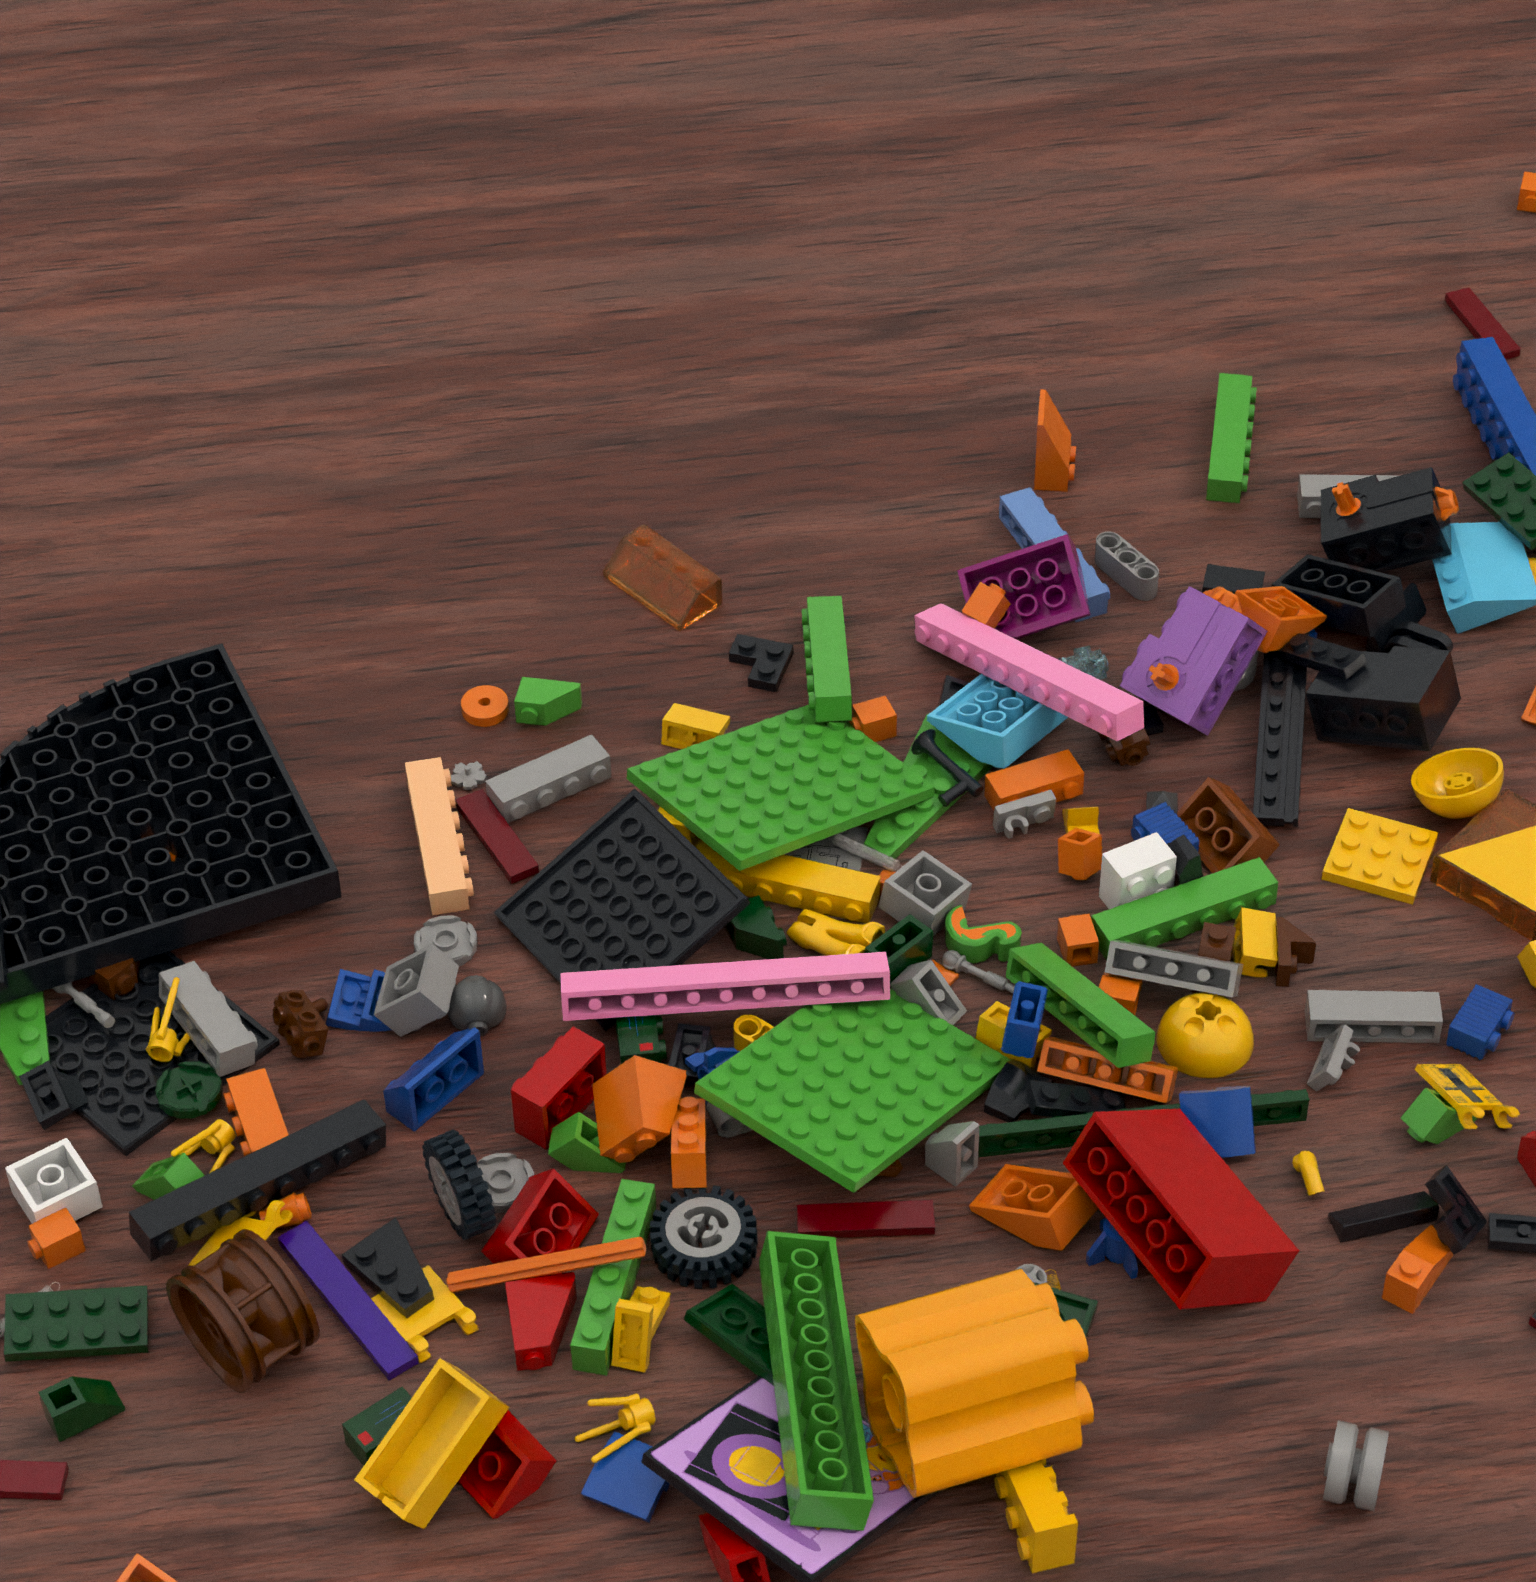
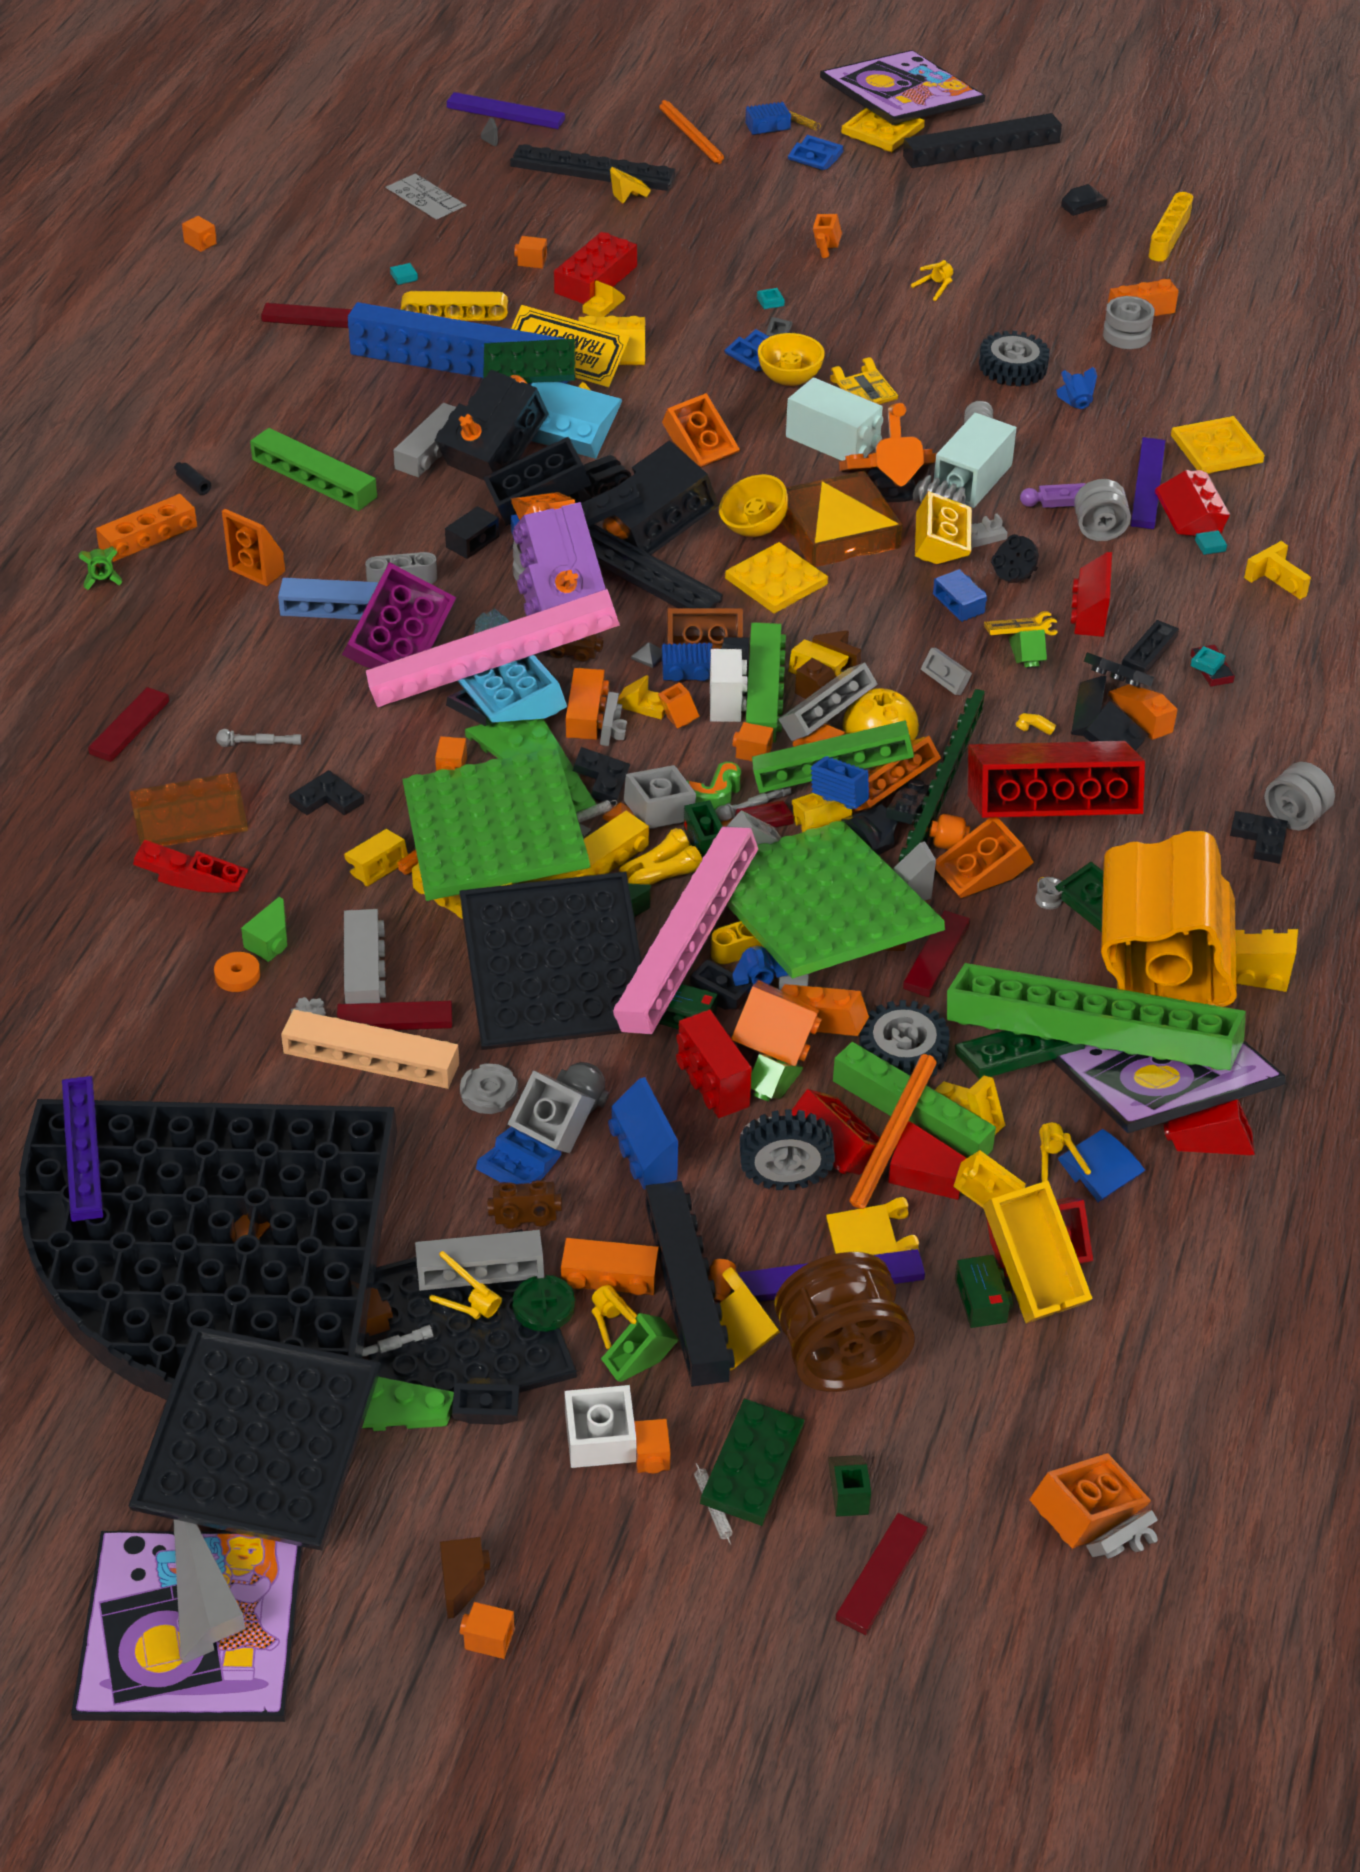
camera: 65 degrees left, 0 degrees up
(174, 694) = (82, 1149): none -> dark purple tile
(391, 1268) = (816, 1236): black wing -> none
(524, 1377) = (985, 1179): none -> yellow hinge
(586, 610) = (194, 873): none -> red slope
(758, 489) = (128, 724): none -> dark red tile
(789, 562) = (226, 738): none -> light grey piece
(826, 659) = (373, 750): bright green brick -> none
(925, 744) = (560, 732): black piece -> none
(946, 840) = (607, 770): none -> black plate
(952, 365) = (101, 570): none -> bright green brick
(973, 992) = (774, 813): none -> dark red tile
(987, 604) = (398, 643): orange brick -> none
(1038, 370) = (147, 526): none -> orange brick
(1052, 1151) = (948, 831): none -> orange head
(1114, 1248) = (1042, 833): blue brick -> none
(1142, 366) = (192, 478): none -> black cylinder
(1222, 1118) = (973, 730): blue slope -> none
(1292, 1465) = (1266, 831): none -> black plate
(1342, 1251) = (1114, 725): none -> black plate
(1375, 1015) = (926, 630): light grey brick -> none

